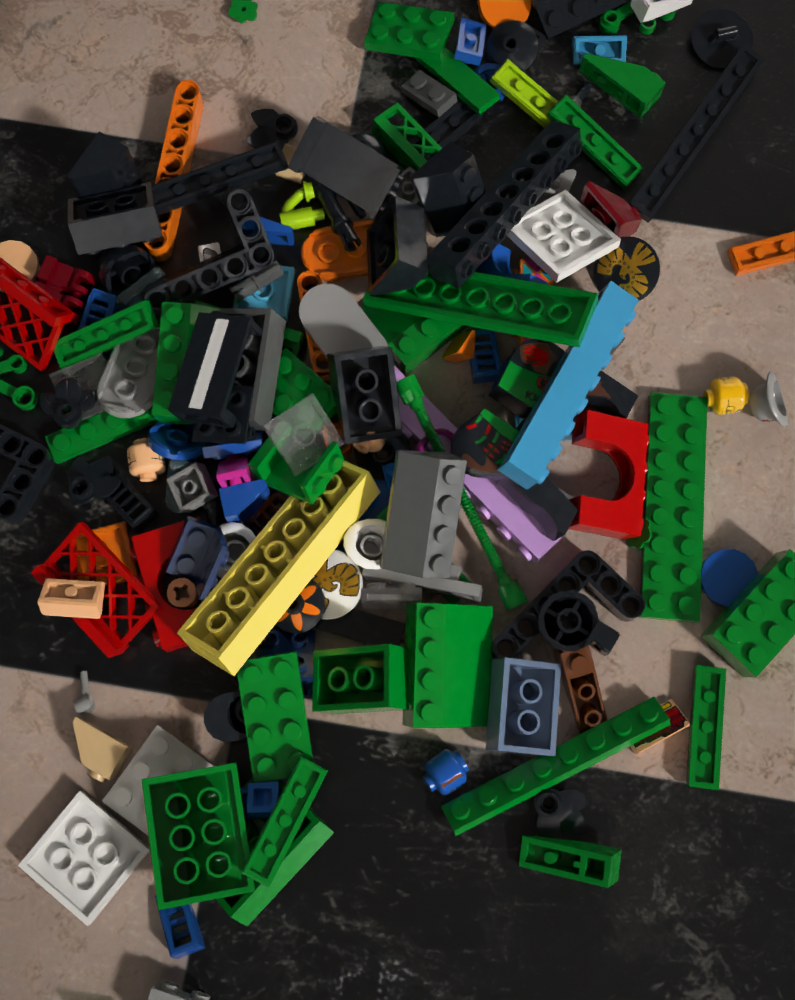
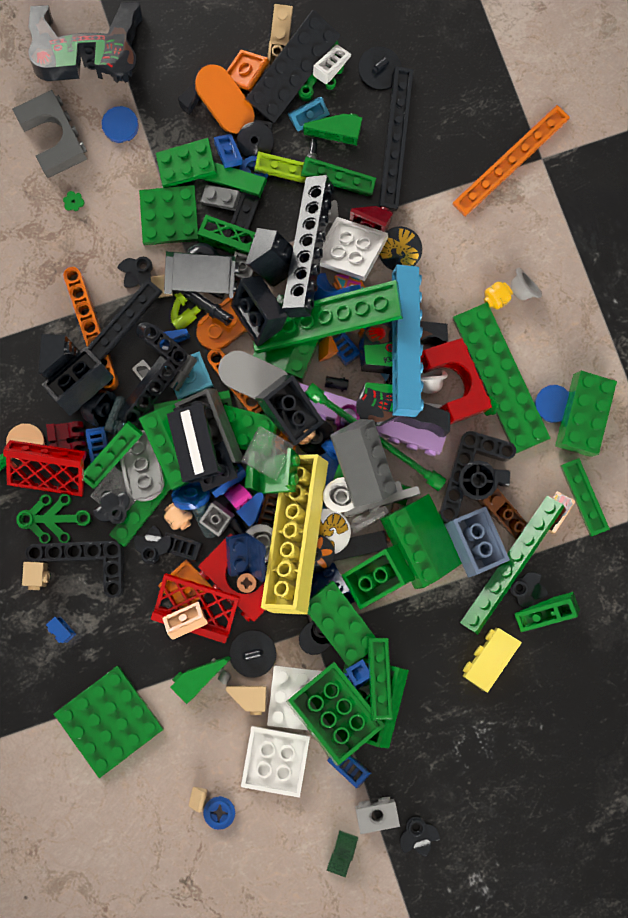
camera: 25 degrees left, 5 degrees up
(36, 687) = (191, 682): none -> green slope
(139, 694) = (252, 653): none -> black shield
(352, 83) = (168, 215): none -> green plate
(445, 771) = (452, 602): blue head -> none
(451, 400) = (338, 383): none -> black pin
(455, 880) = (491, 659): none -> light yellow slope
(577, 460) = (433, 381): none -> white hat

